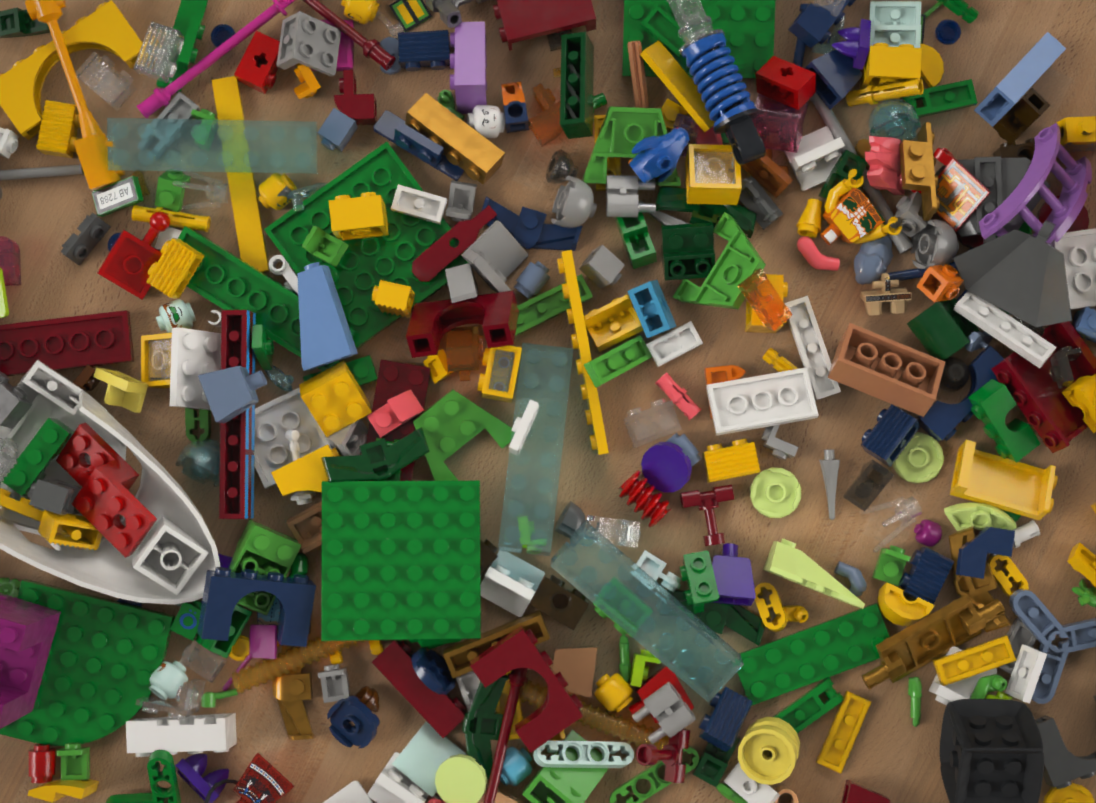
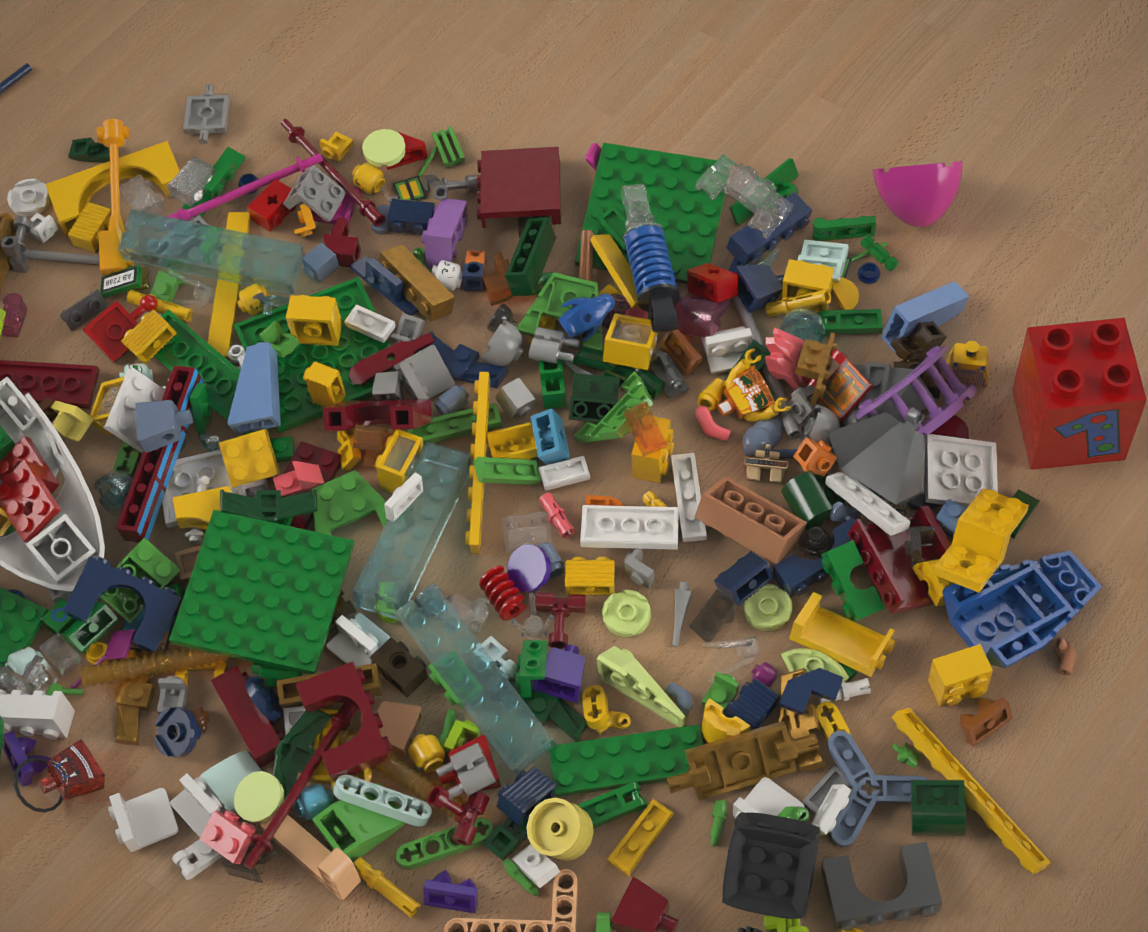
camera: 15 degrees right, 25 degrees down
(687, 529) = (533, 626): none -> clear plant
(856, 43) = (778, 262): dark purple tile -> none
(974, 660) = (783, 791): yellow tile -> none

